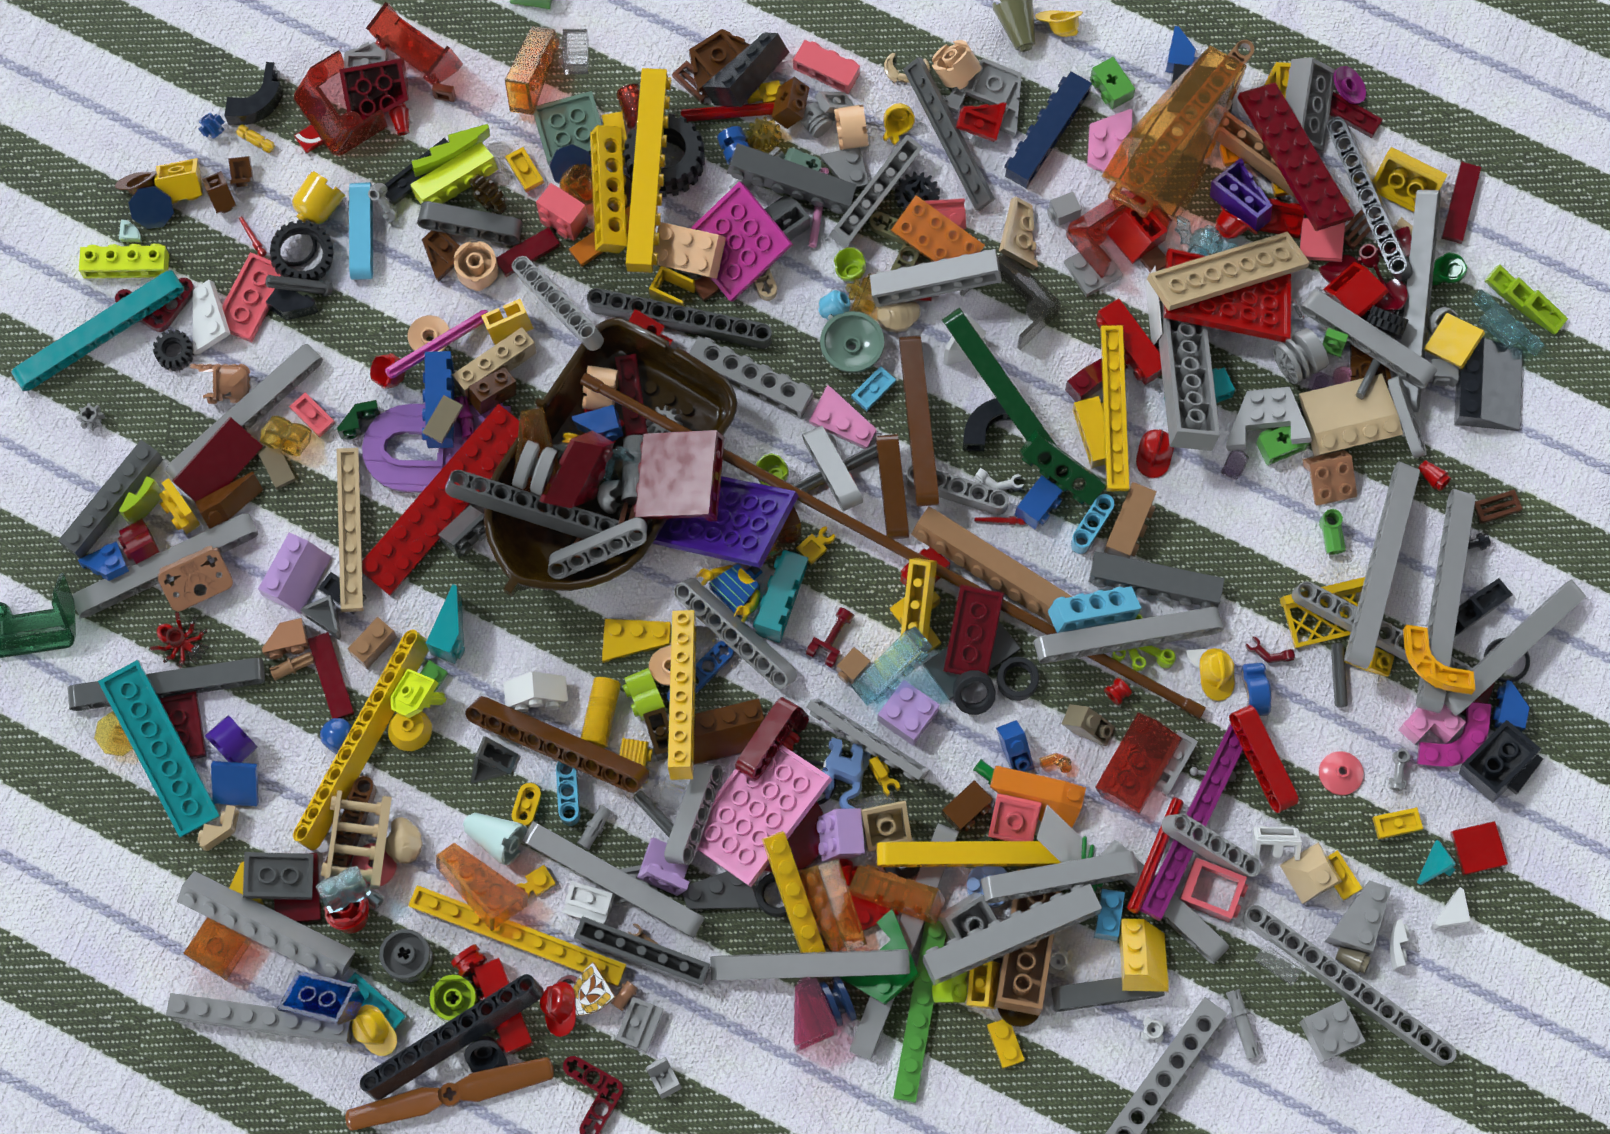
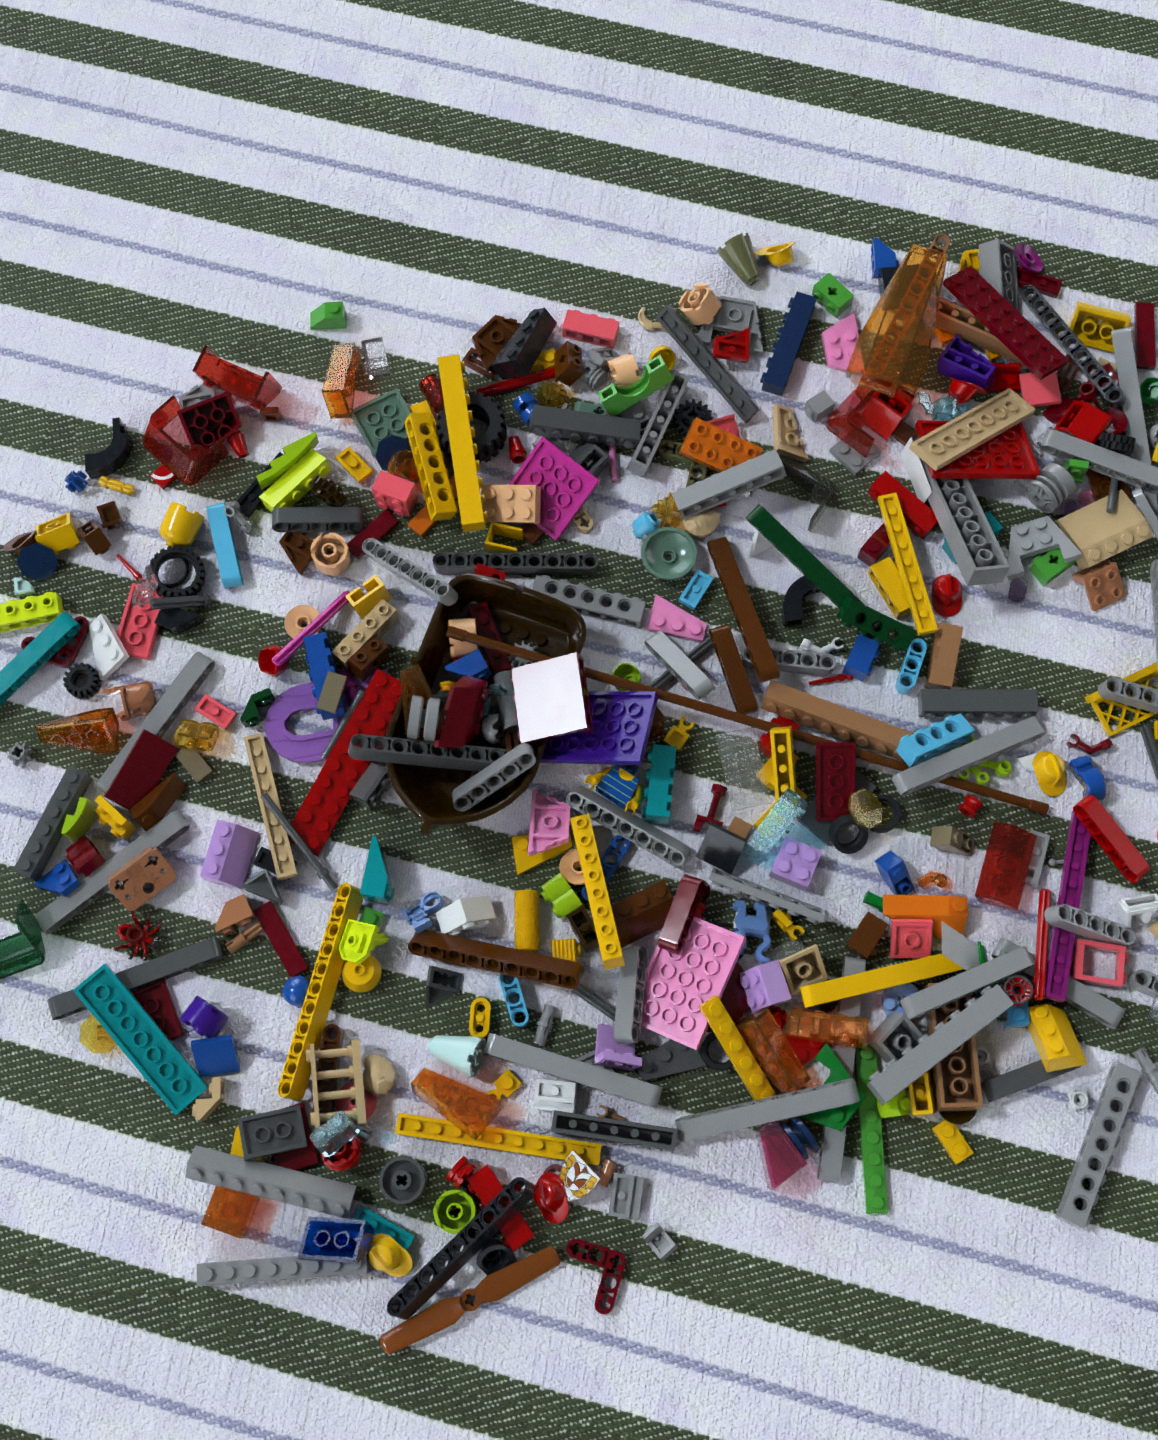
camera: 10 degrees left, 0 degrees up
(165, 405) = (88, 730): none -> clear orange wedge
(264, 261) = (145, 588): none -> clear panel
(372, 643) = (311, 902): medium nougat brick -> none
(390, 613) = (322, 872): none -> dark grey bar
(430, 476) = (340, 728): none -> dark grey bar
(483, 681) = (418, 914): none -> medium blue piece
(647, 612) = (547, 823): none -> bright pink wing
(710, 190) = (516, 450): none -> red cone
(831, 678) = (721, 848): none -> black tile
(835, 154) = (620, 398): none -> bright green arch
(849, 264) = (650, 488): lime hair -> none
(875, 597) = (743, 769): none -> clear plate
(998, 668) = (865, 808): none -> clear yellow piece
(1112, 887) = (1026, 989): none -> wheel
(1332, 534) = (1116, 632): bright green piece -> none

